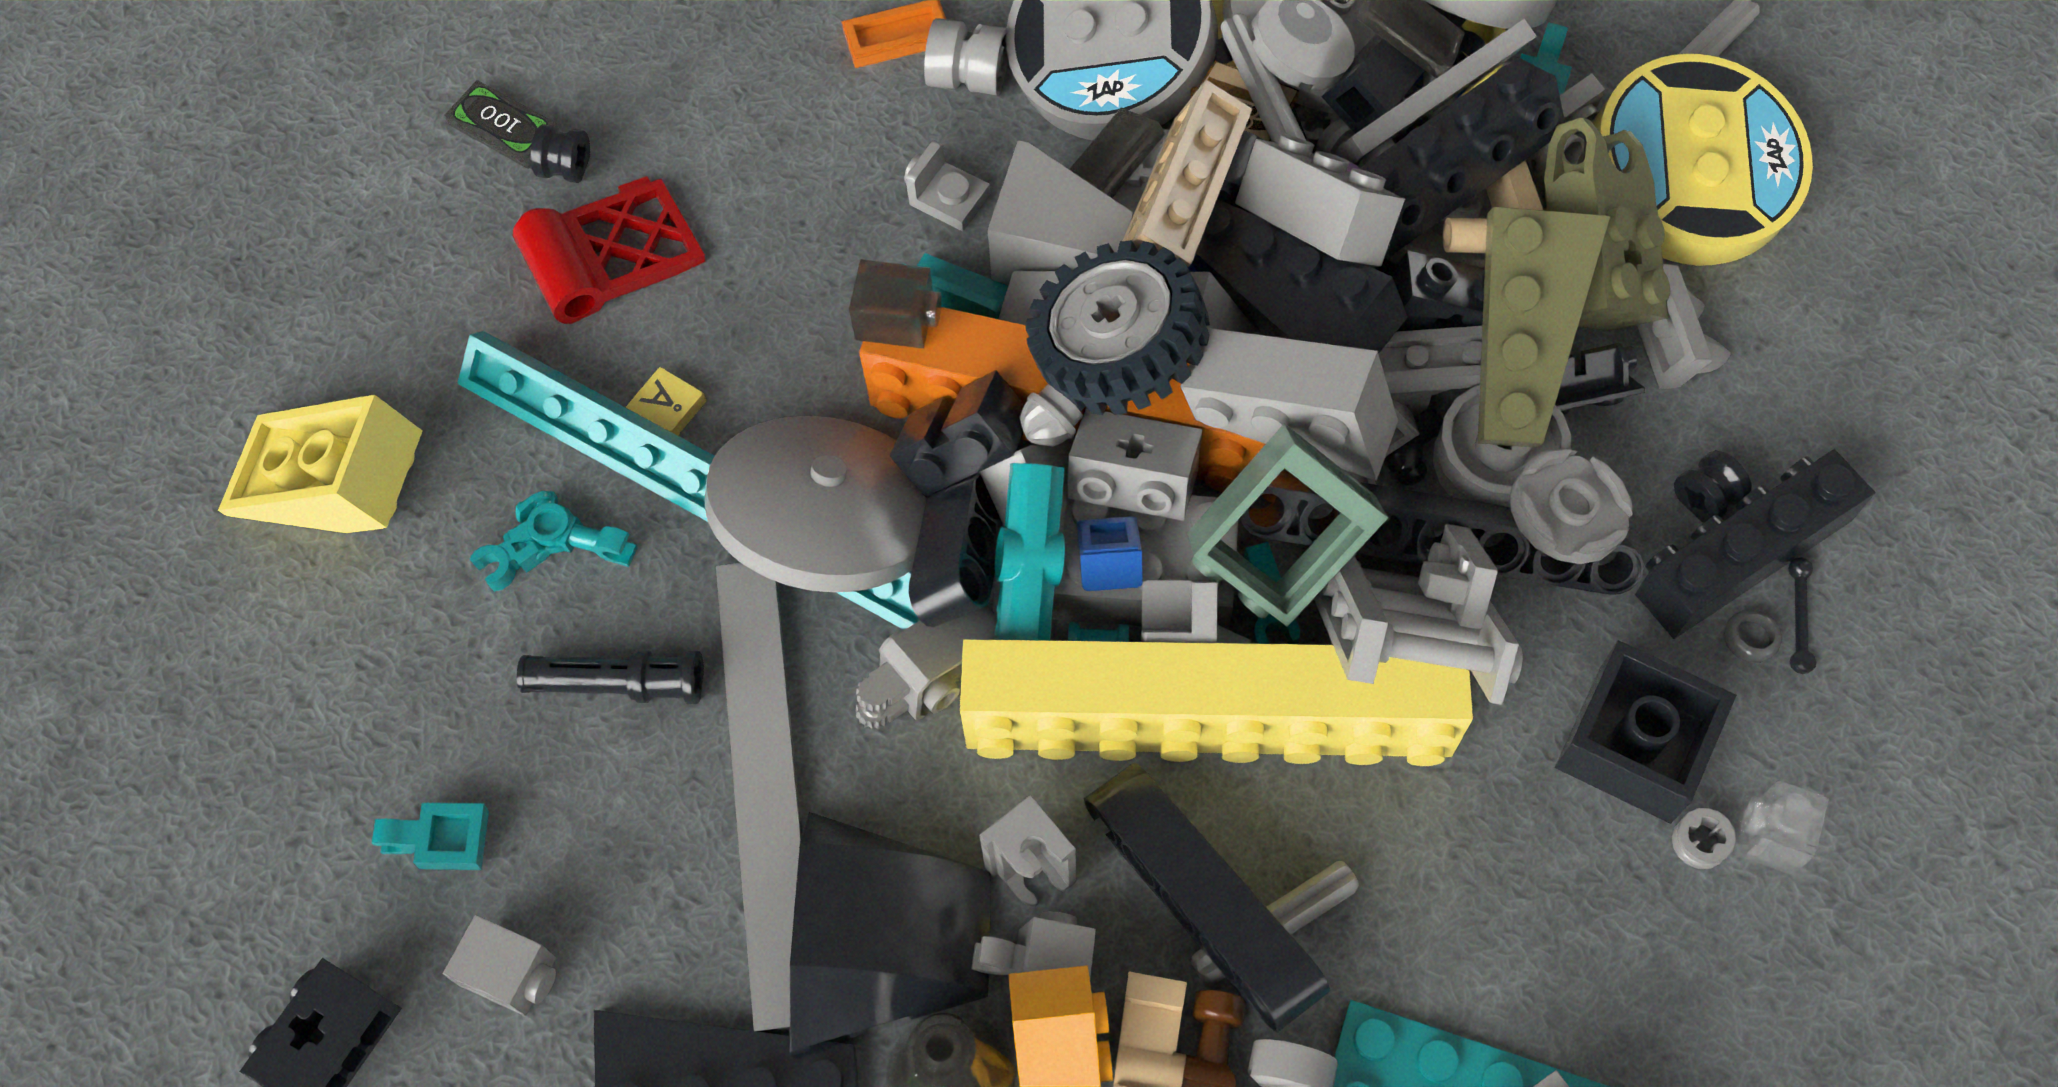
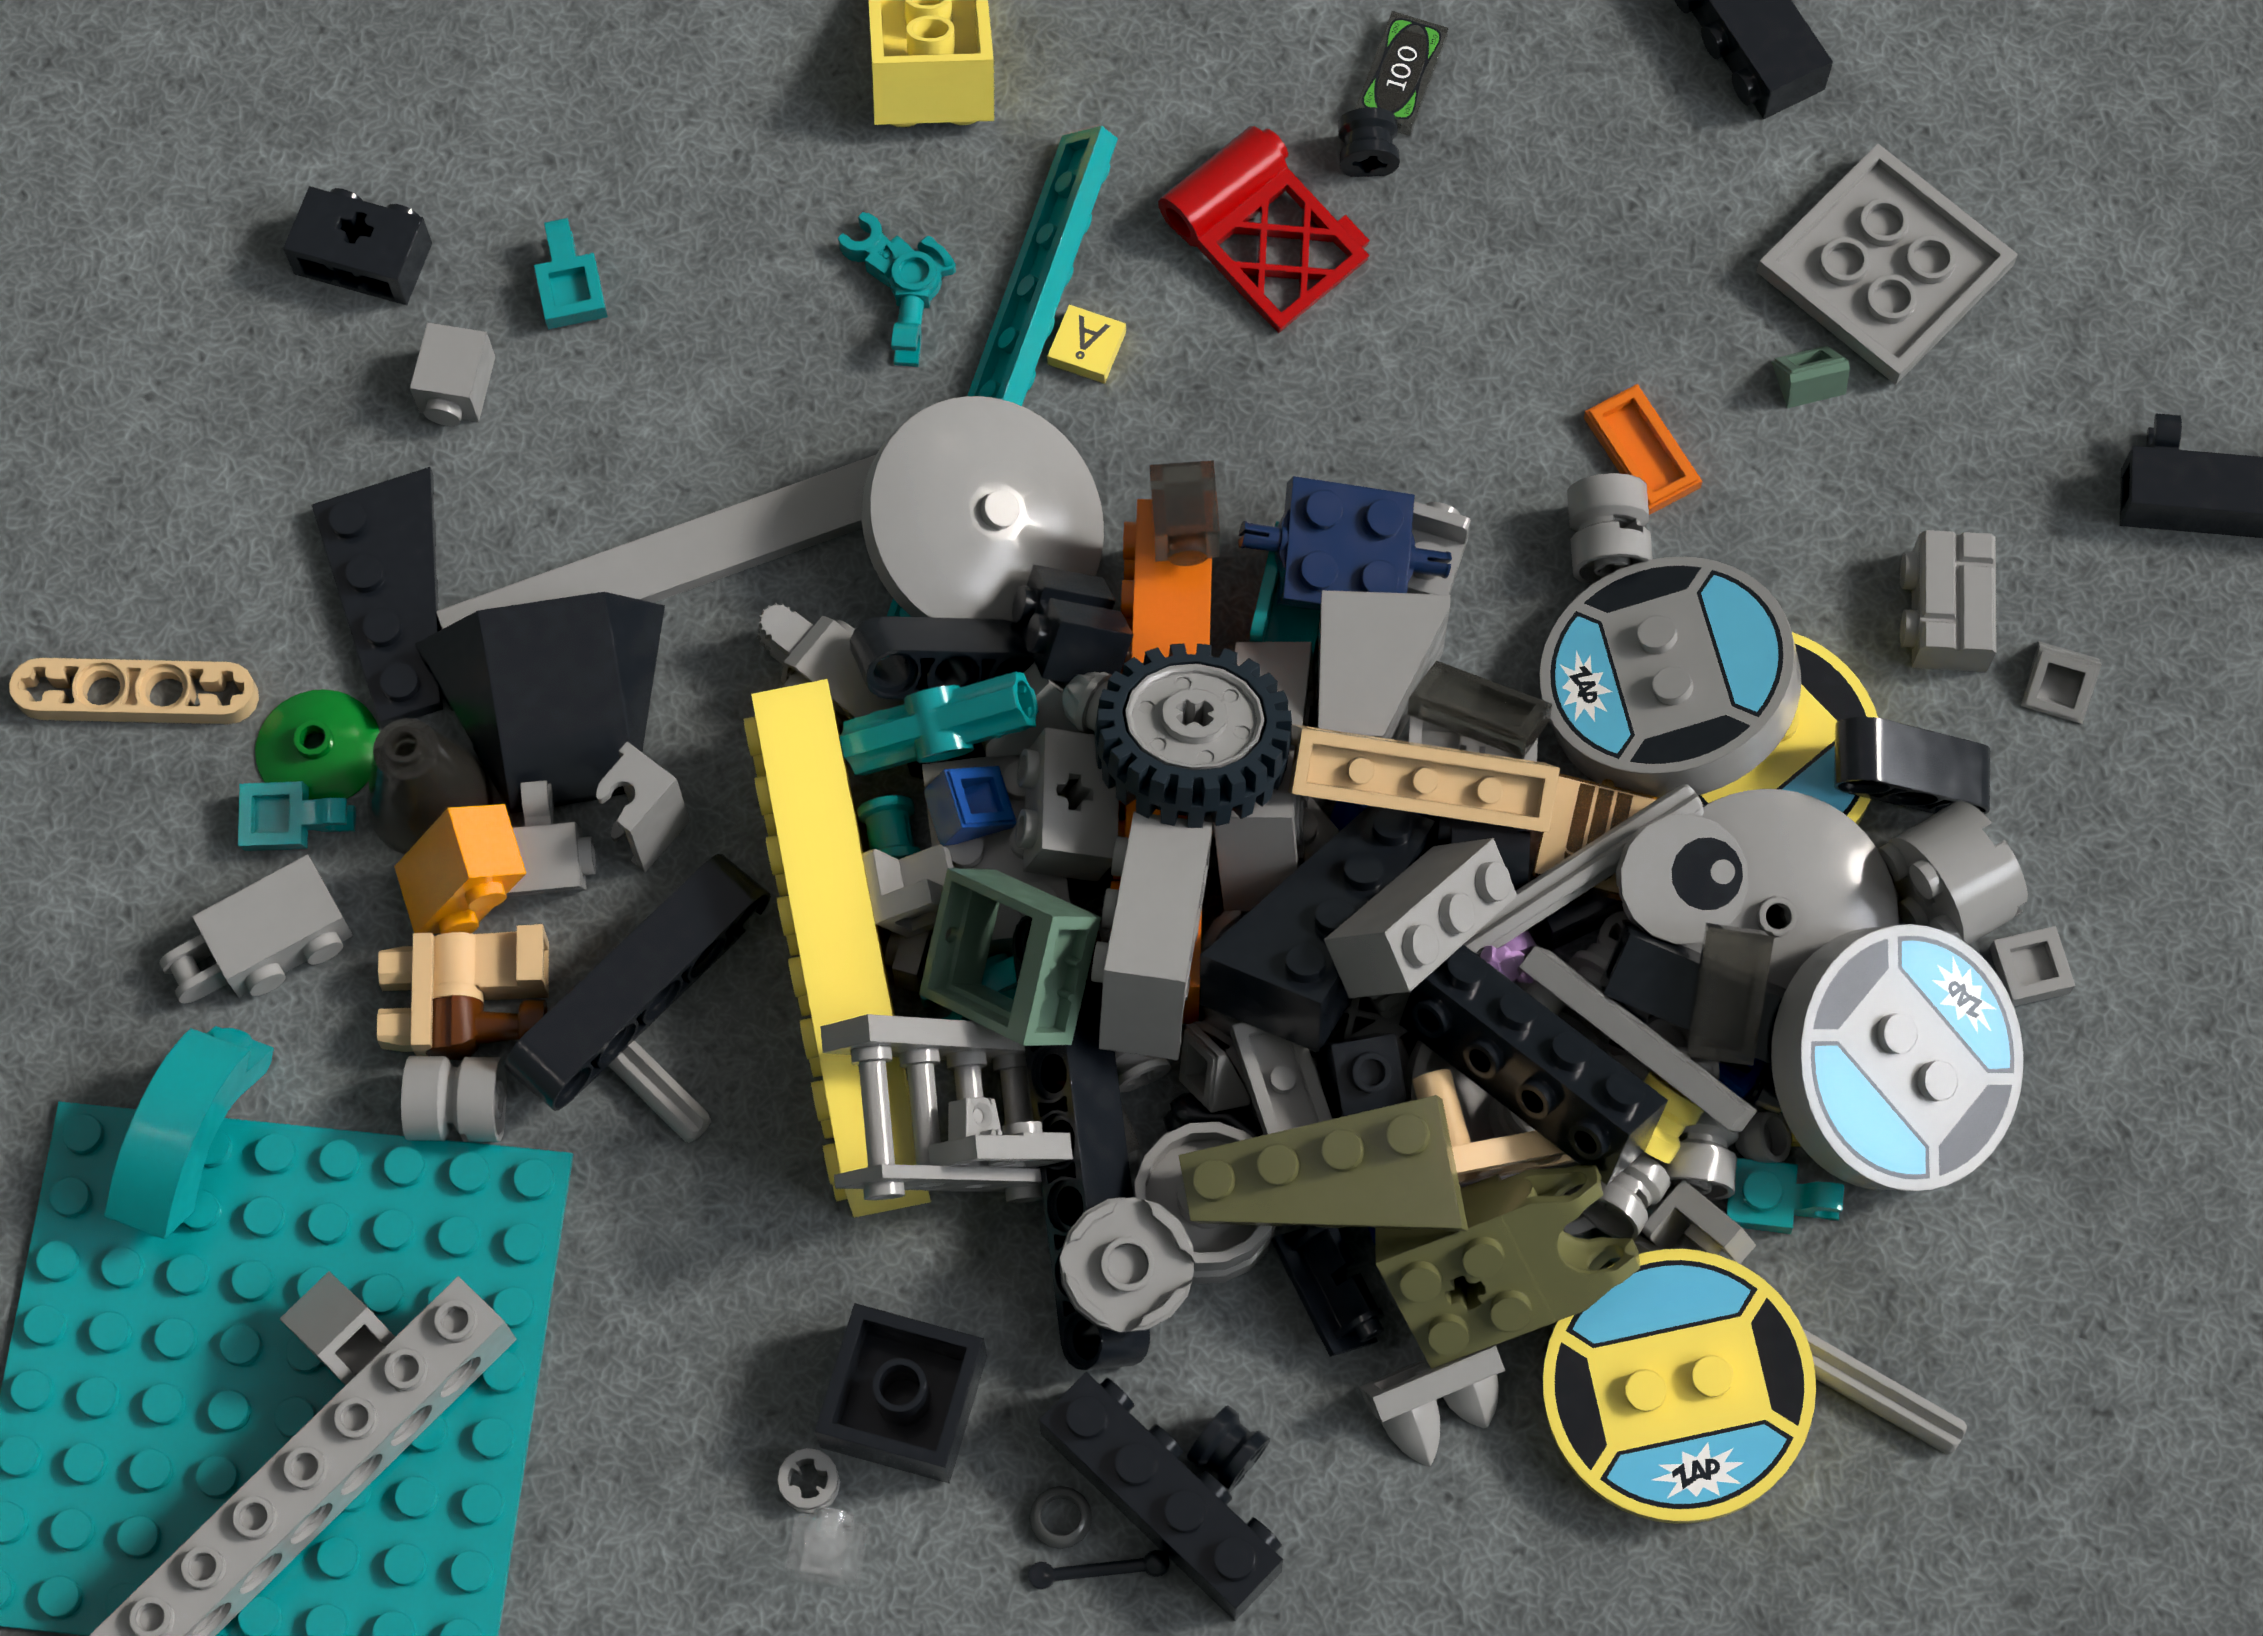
camera: 75 degrees right, 5 degrees up
(638, 676) = (769, 407): black pin -> none
(937, 223) = (1342, 542): none -> dark blue plate

